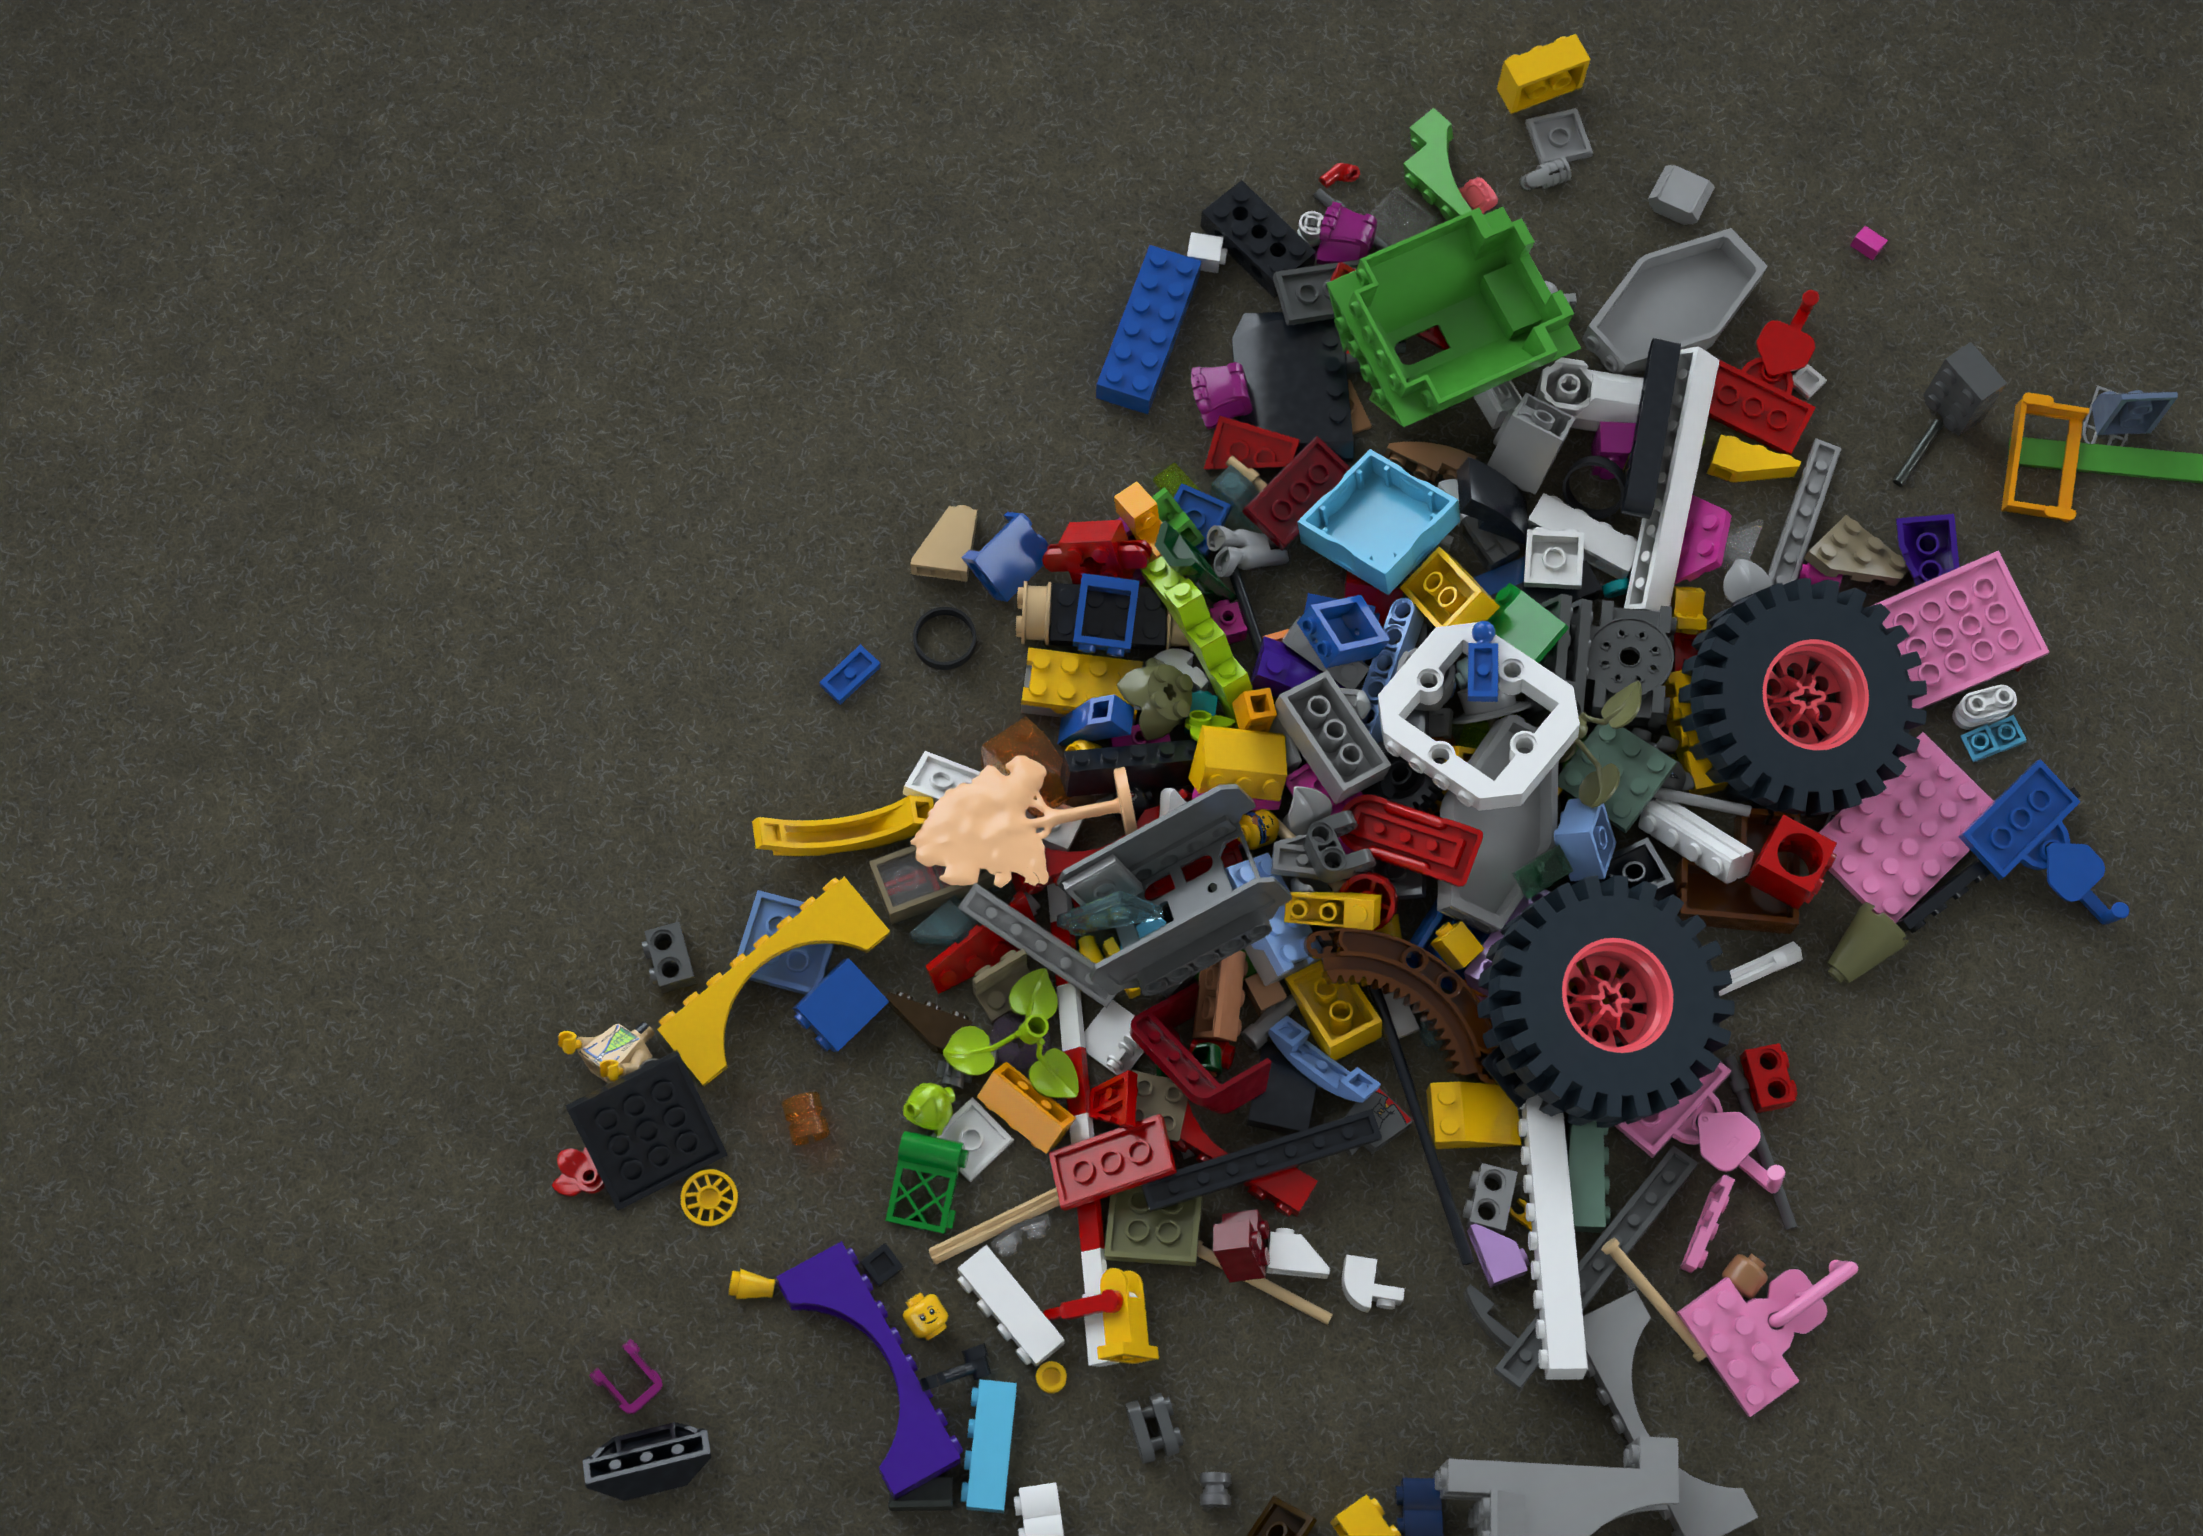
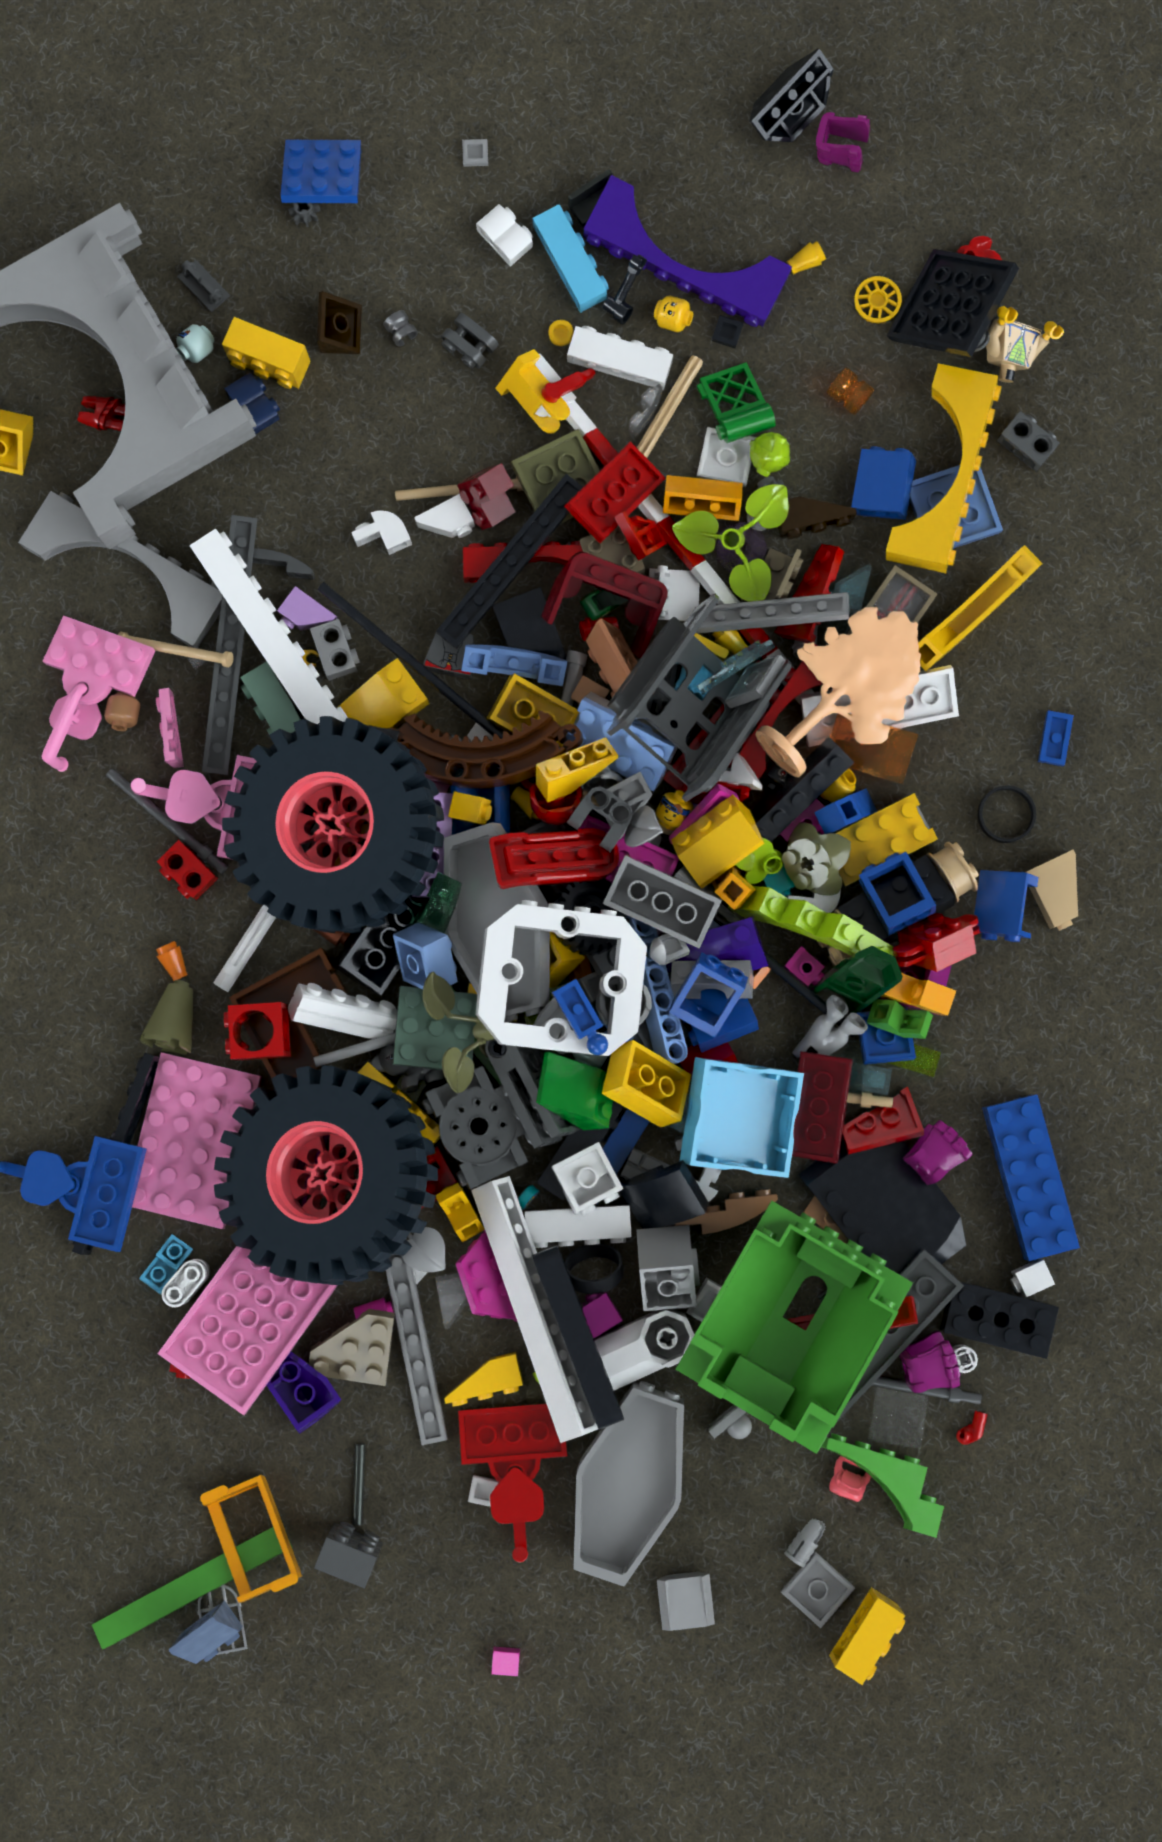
camera: 150 degrees right, 15 degrees up
(1831, 1005) = (172, 960): none -> orange cone

